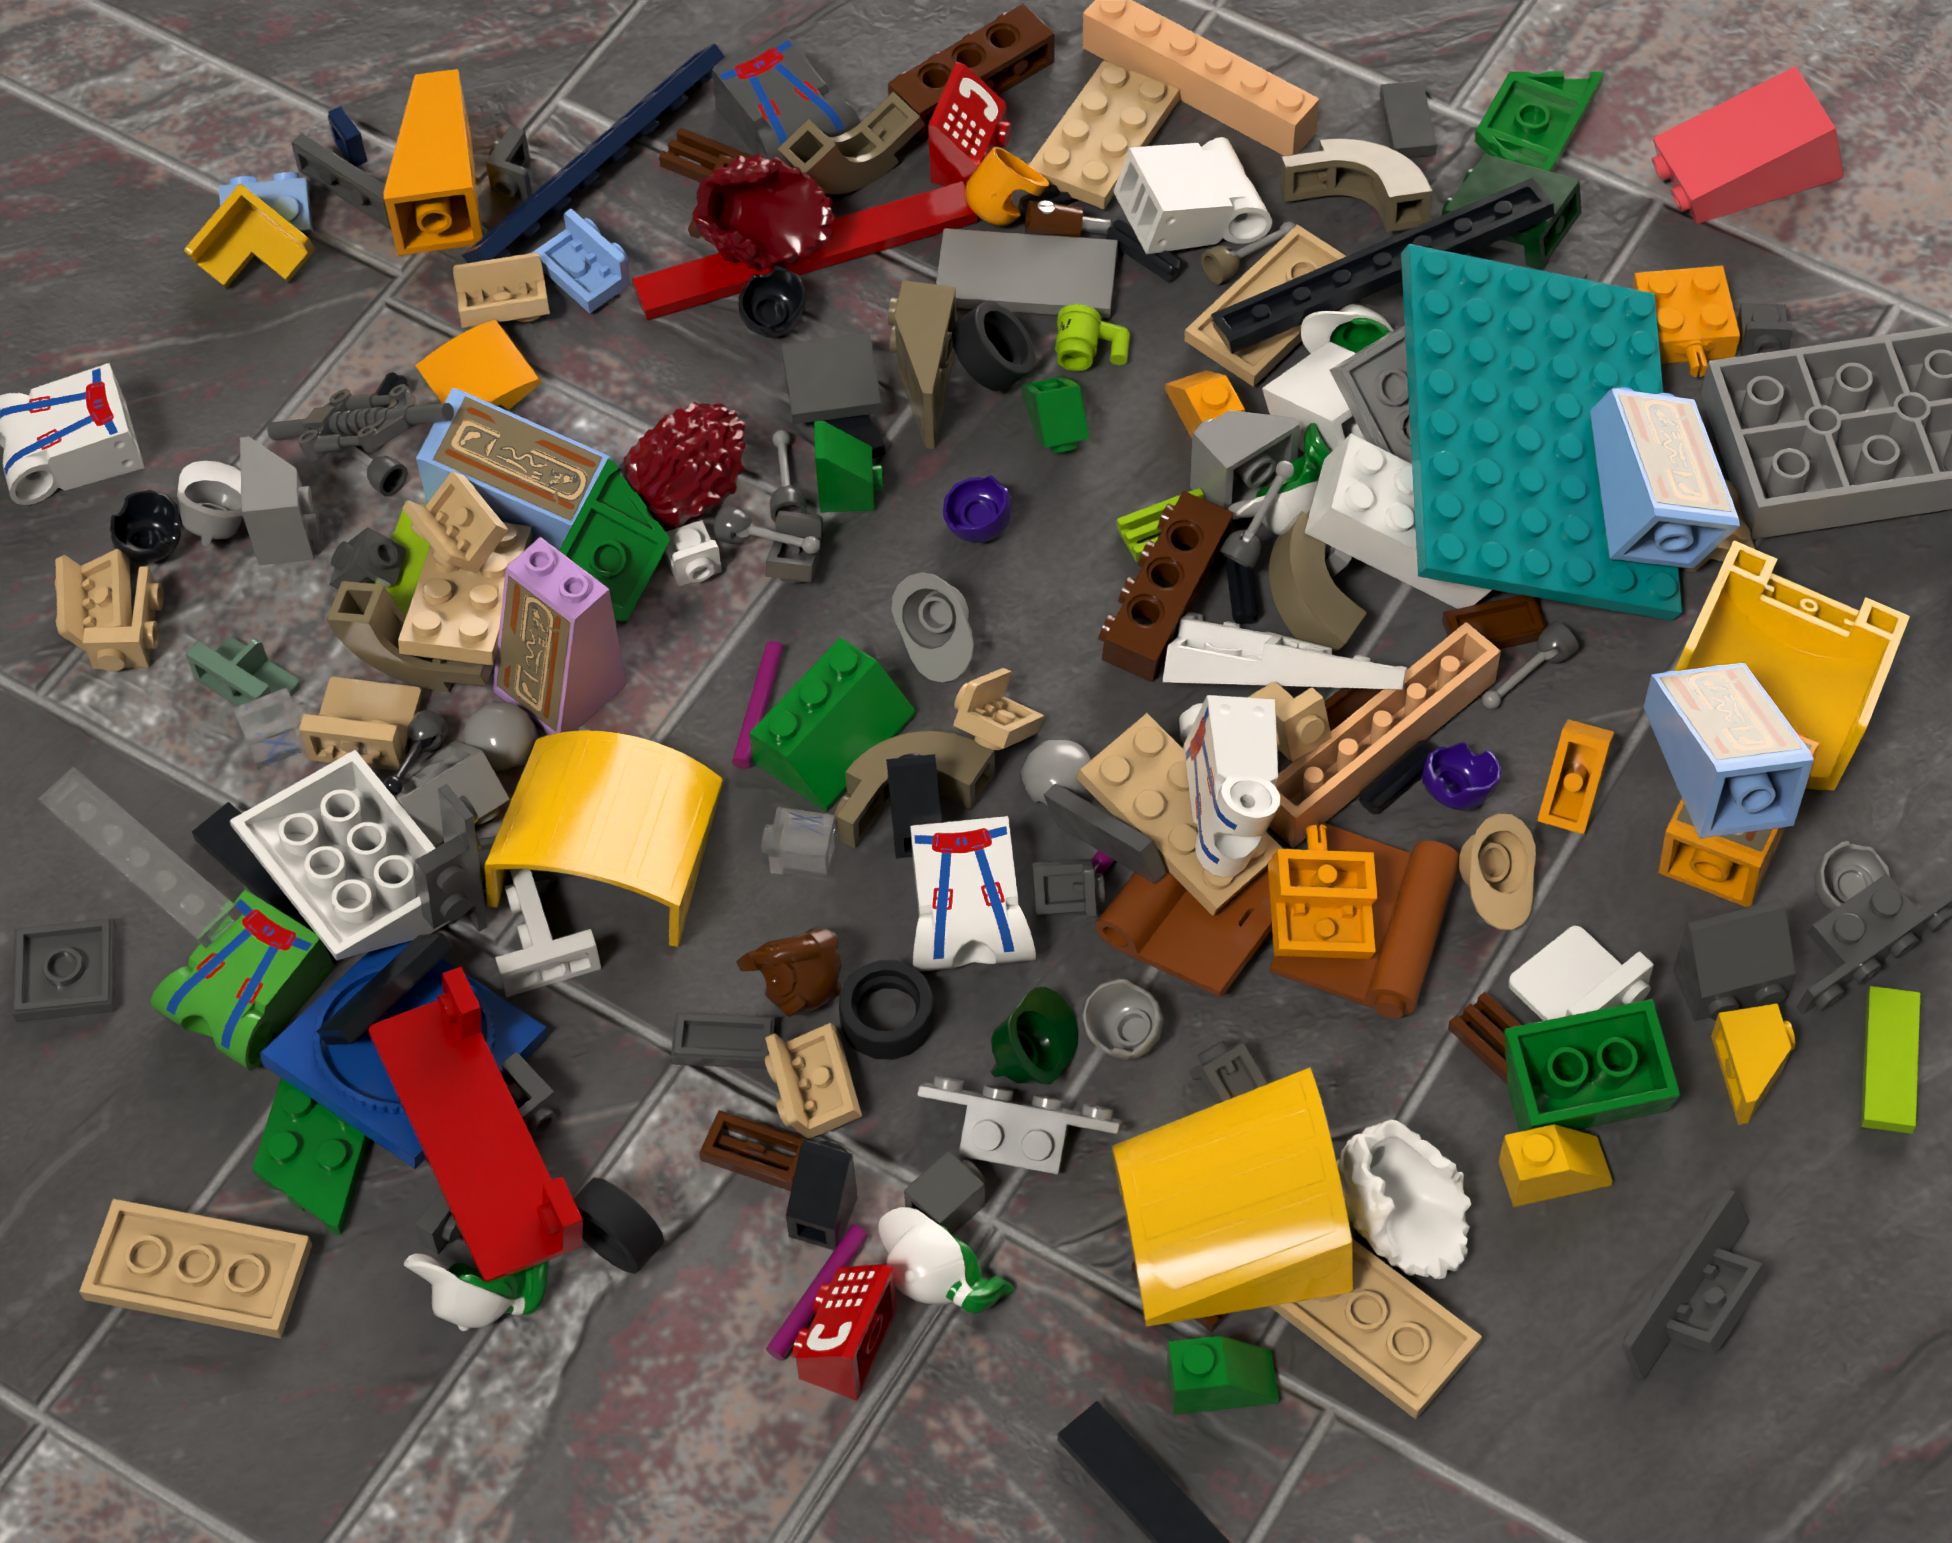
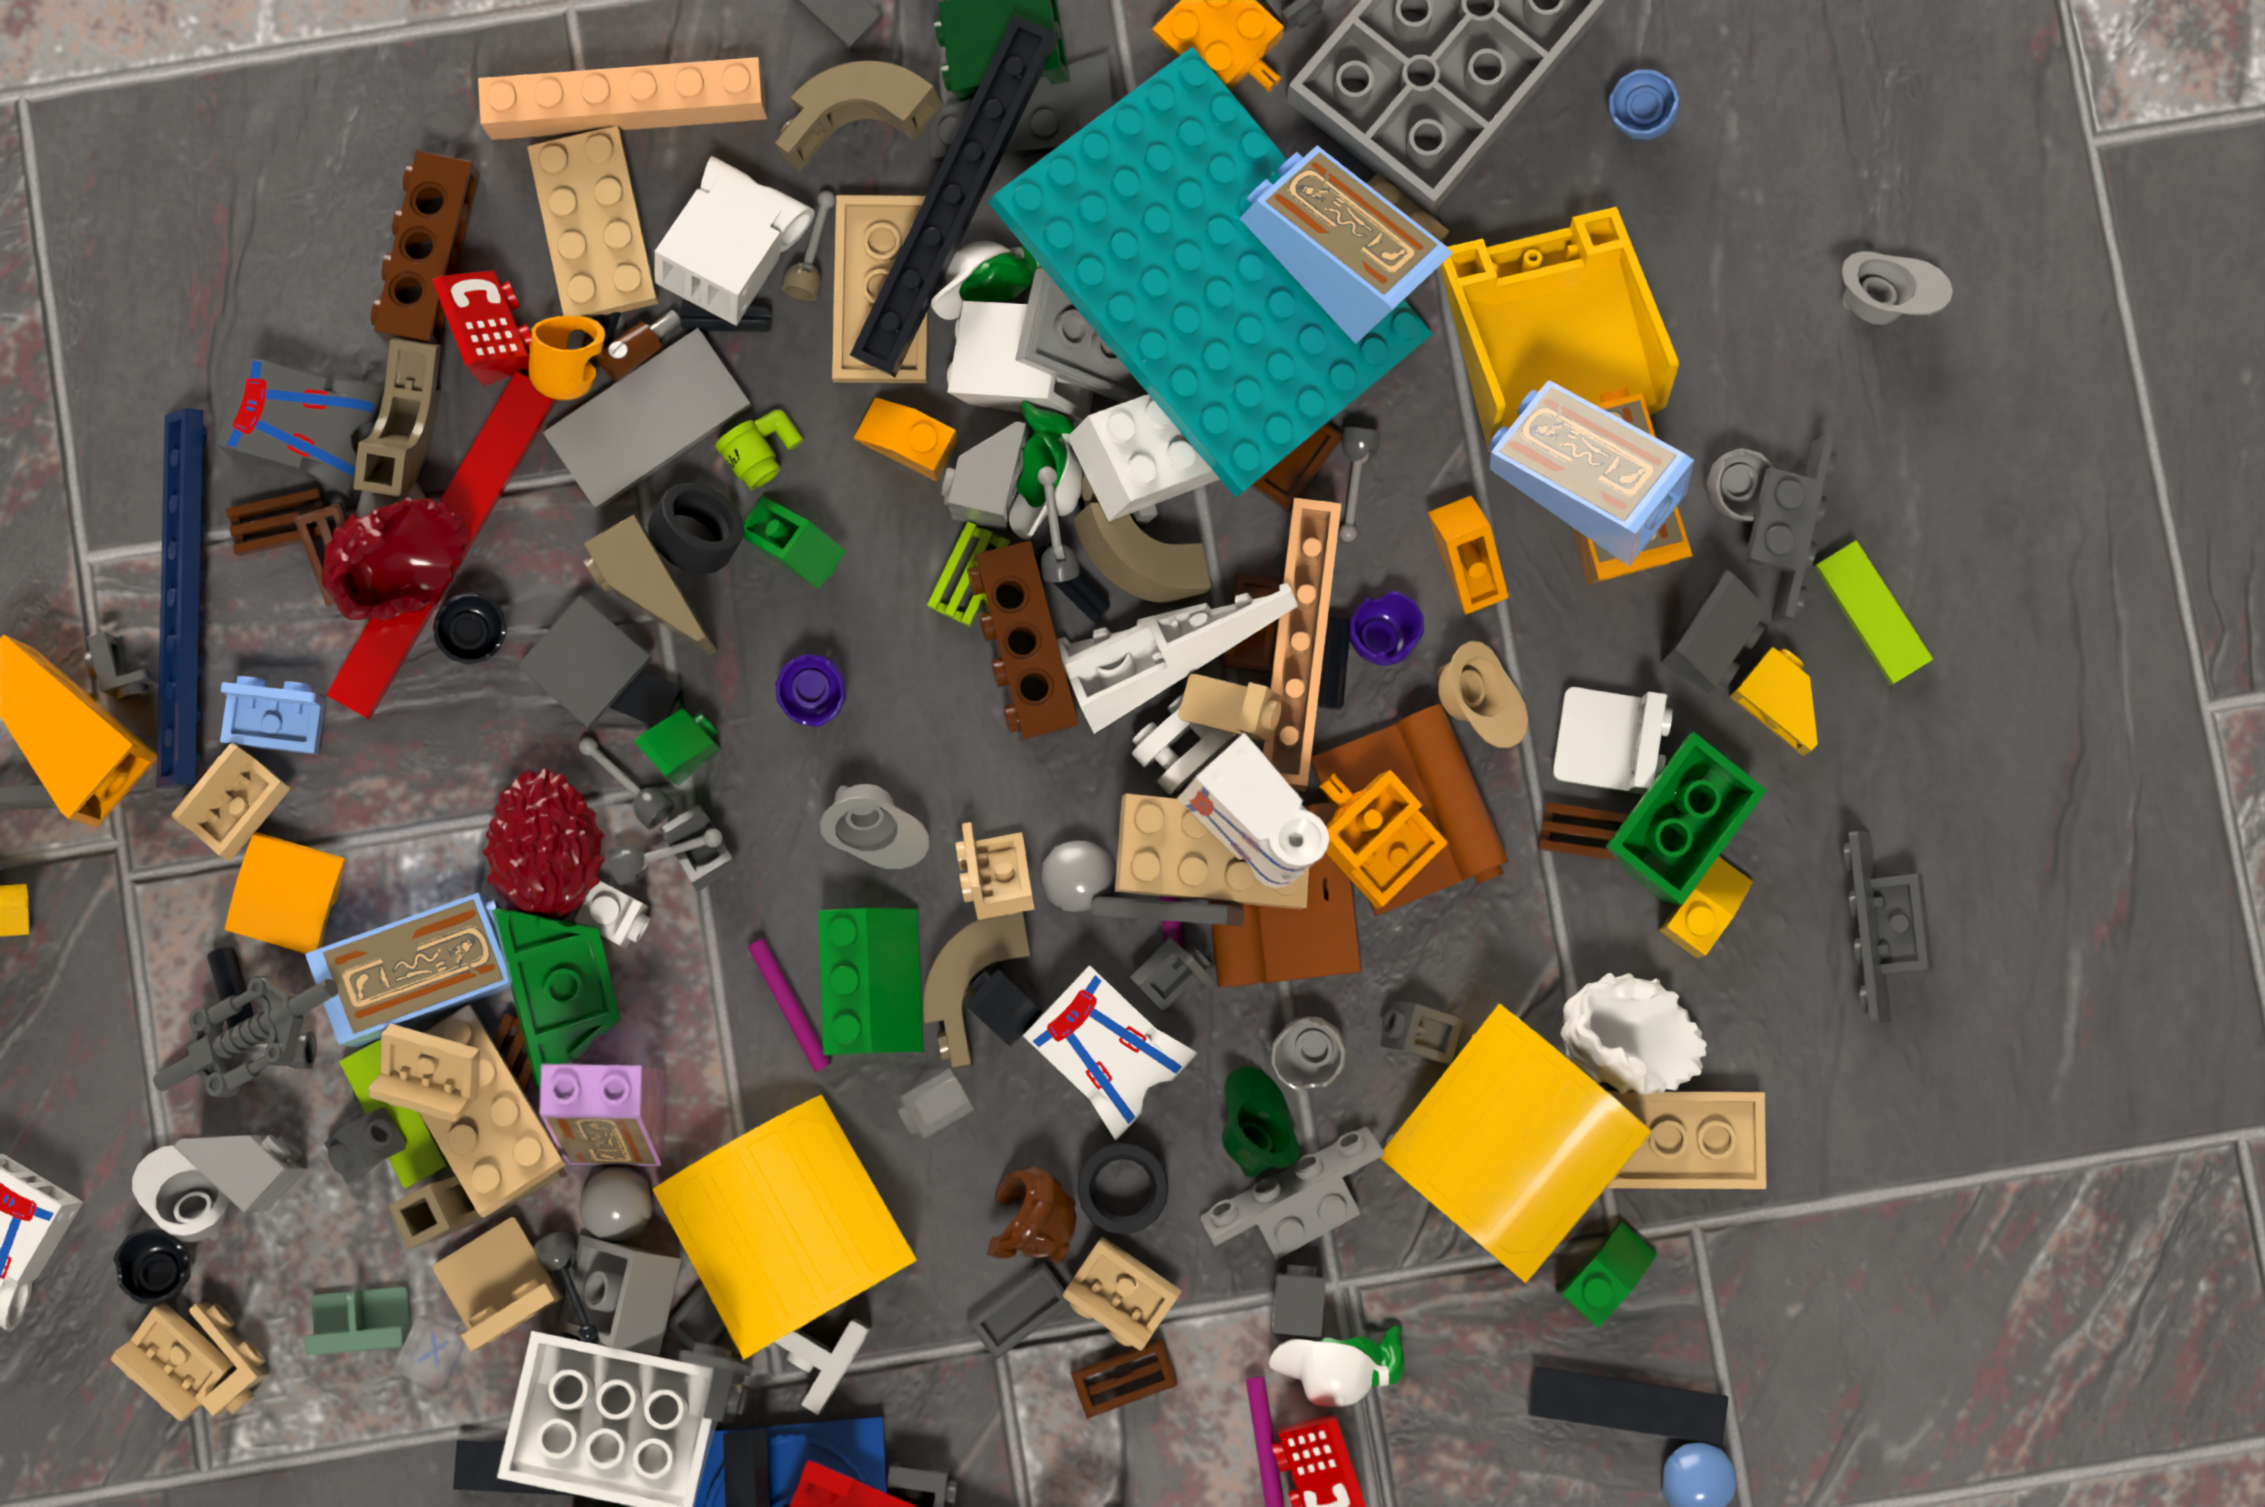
camera: 40 degrees left, 25 degrees up
(821, 1194) = (1215, 1385): black slope -> none

